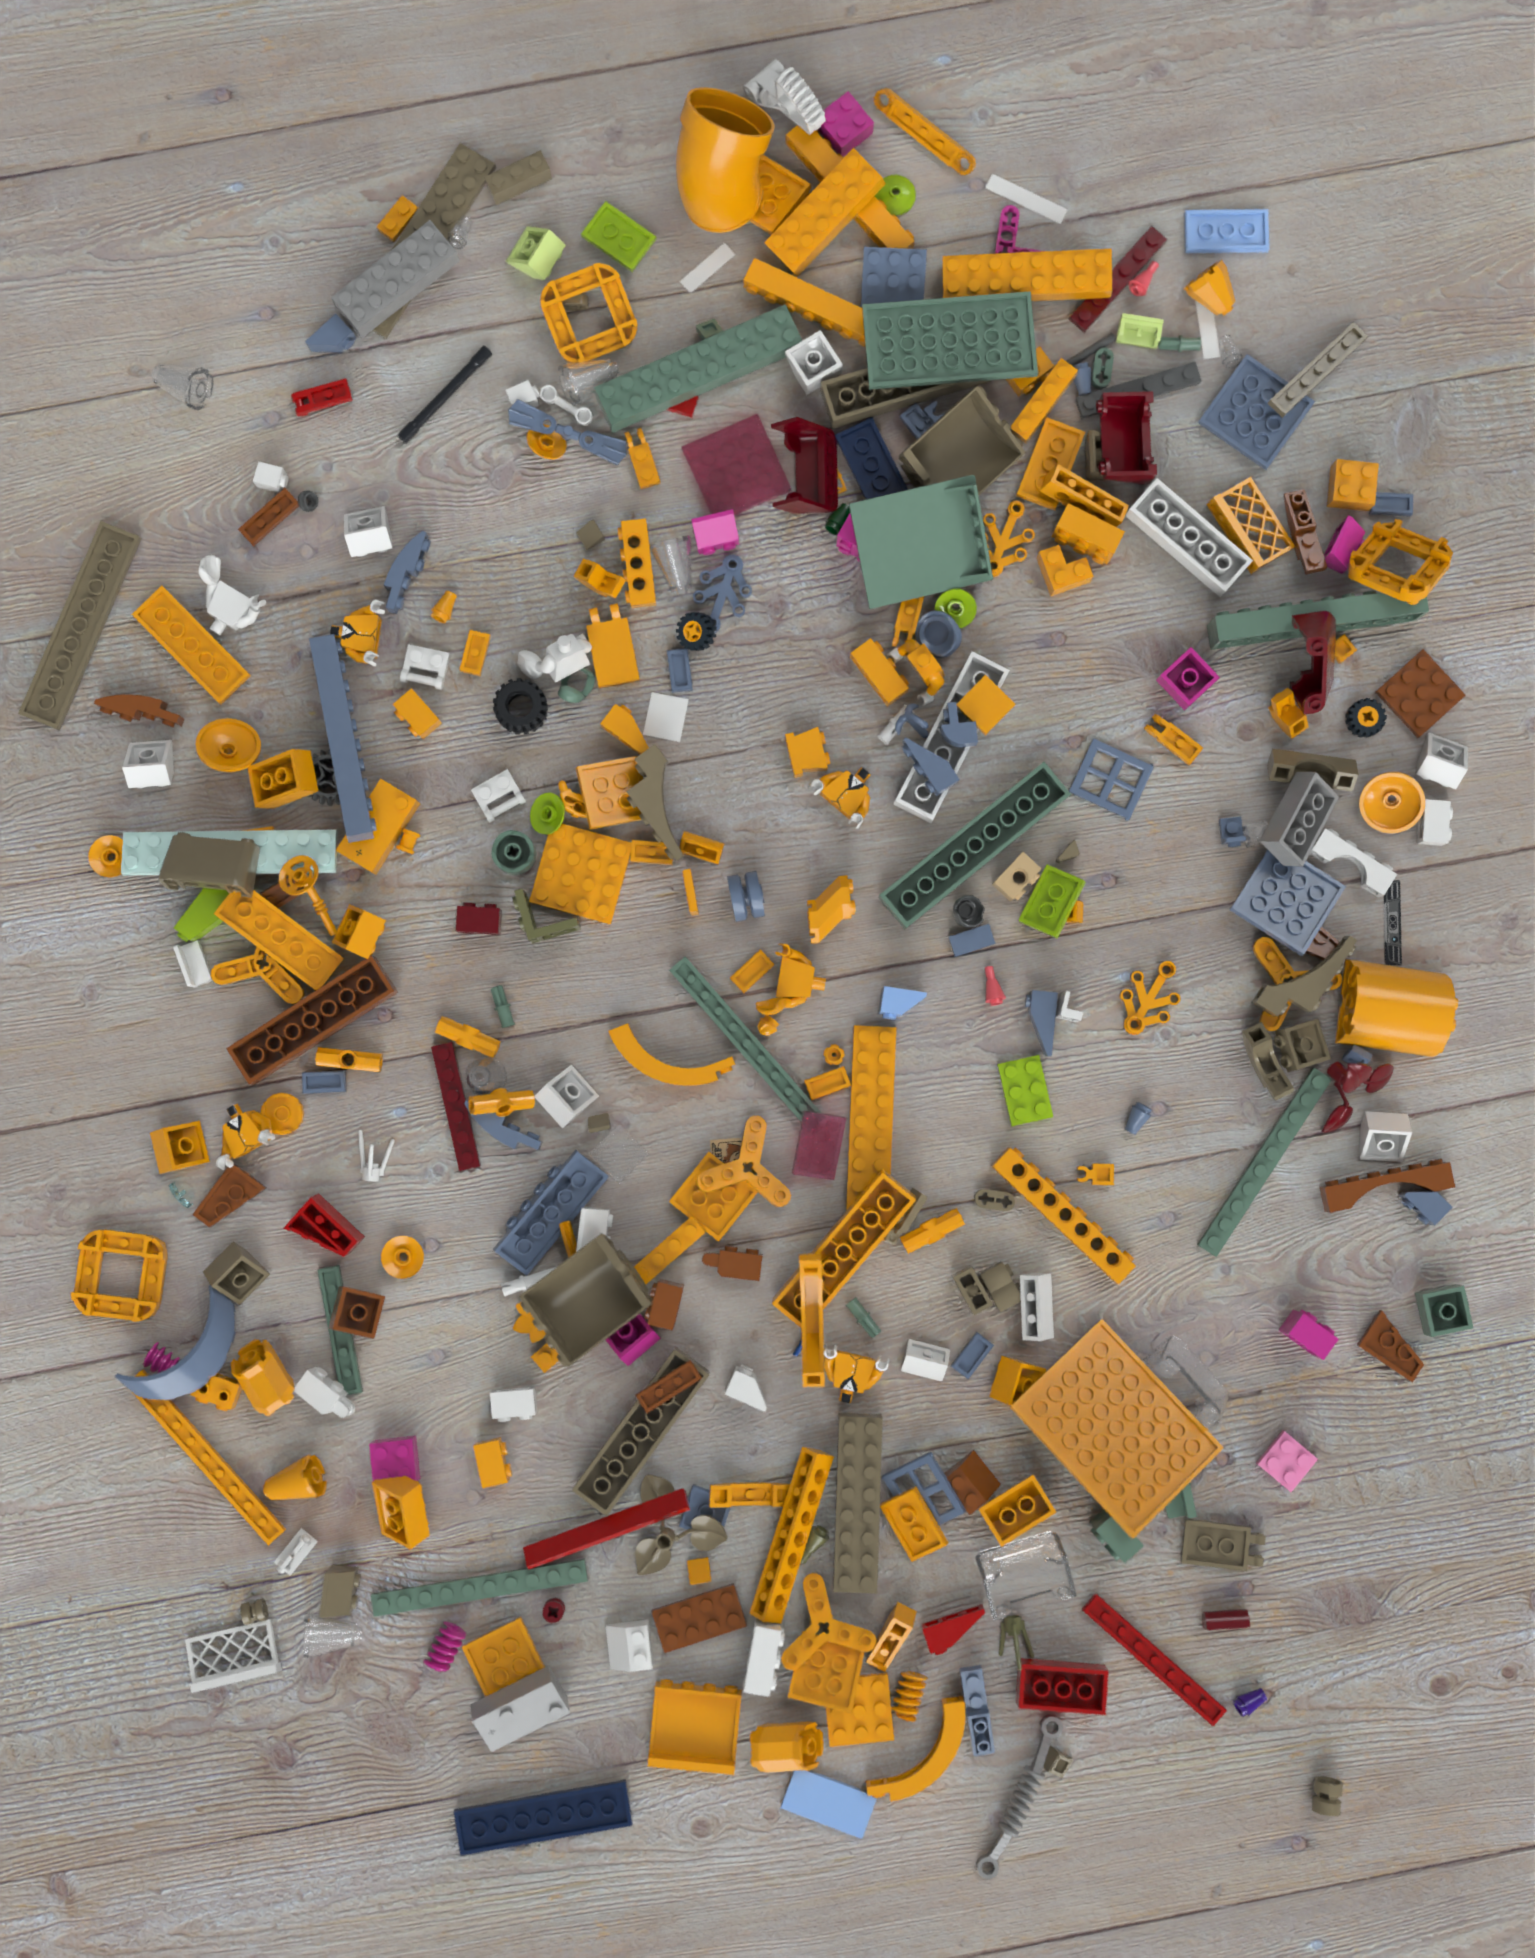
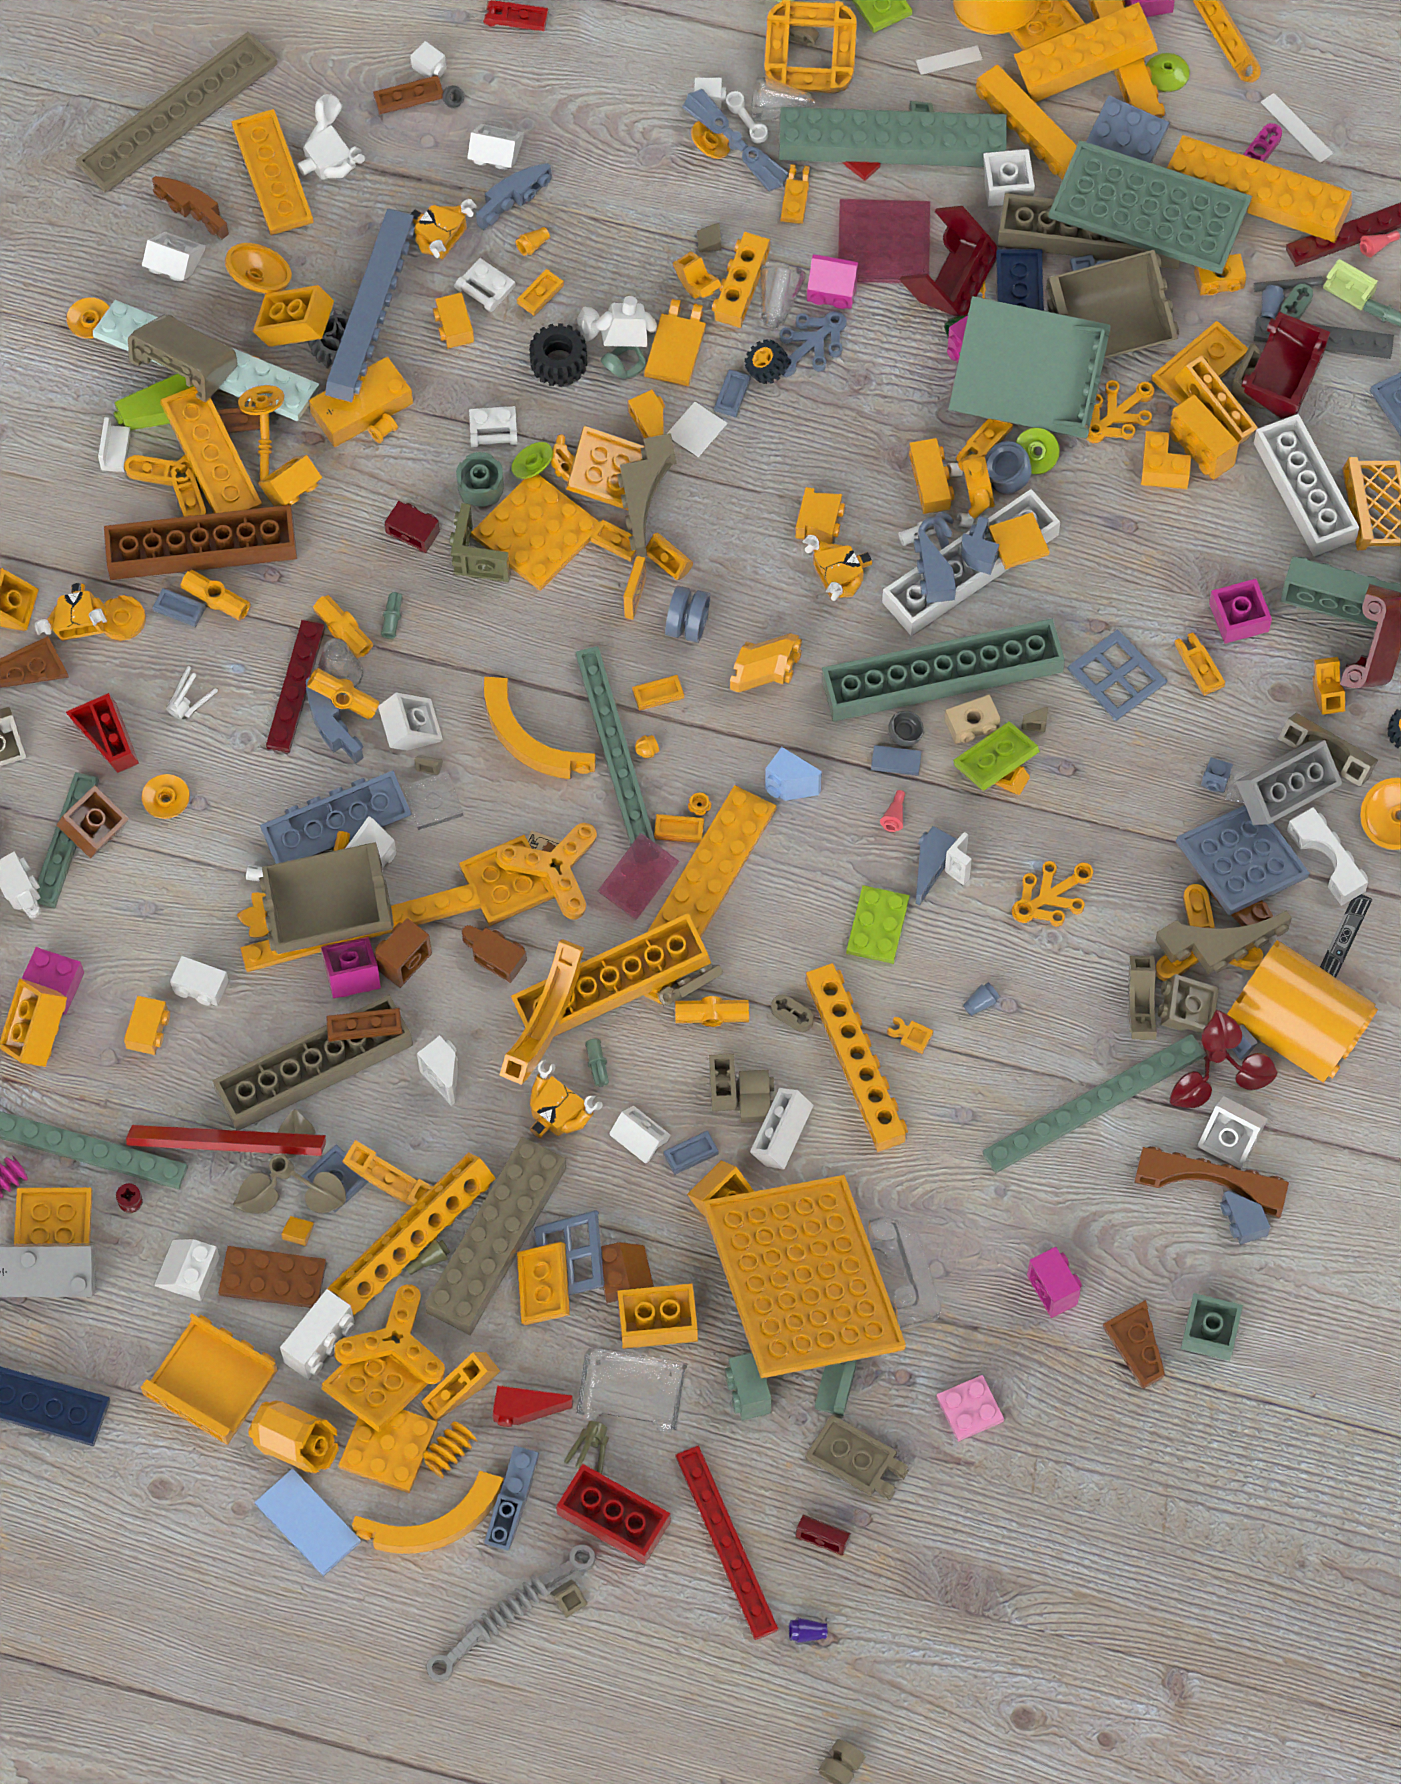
camera: 30 degrees right, 20 degrees down
(475, 362) = (589, 76): black piece -> none
(794, 982) = (696, 715): light orange torso -> none
(1043, 400) = (1219, 302): light orange brick -> none

